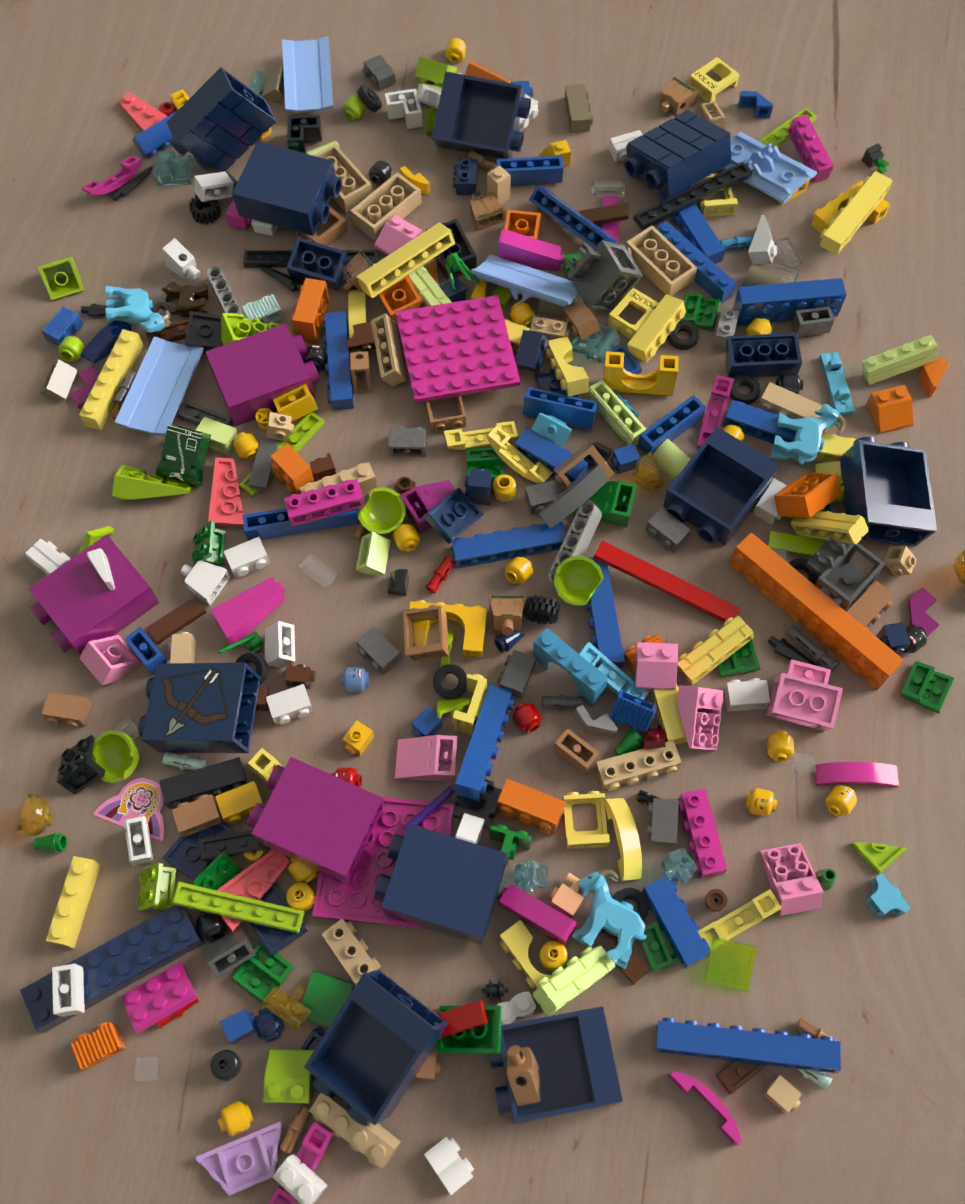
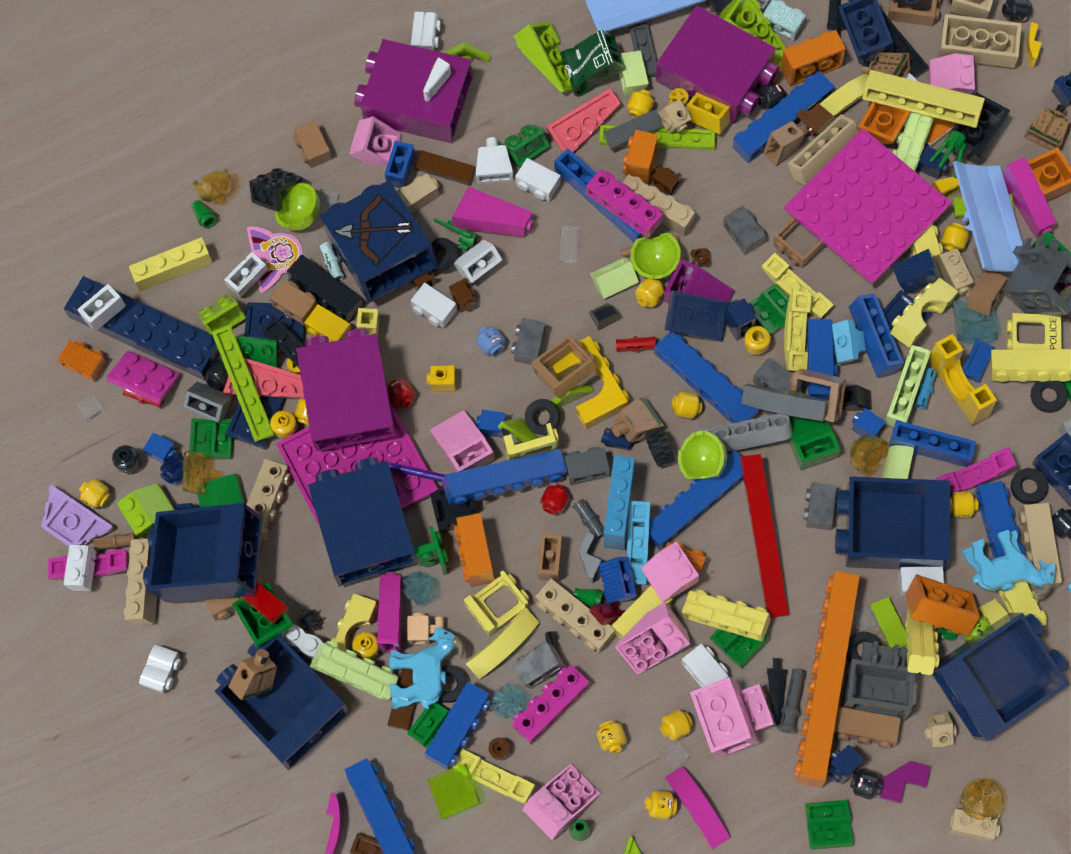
camera: 60 degrees right, 5 degrees up
(470, 829) = (420, 515): white slope -> none

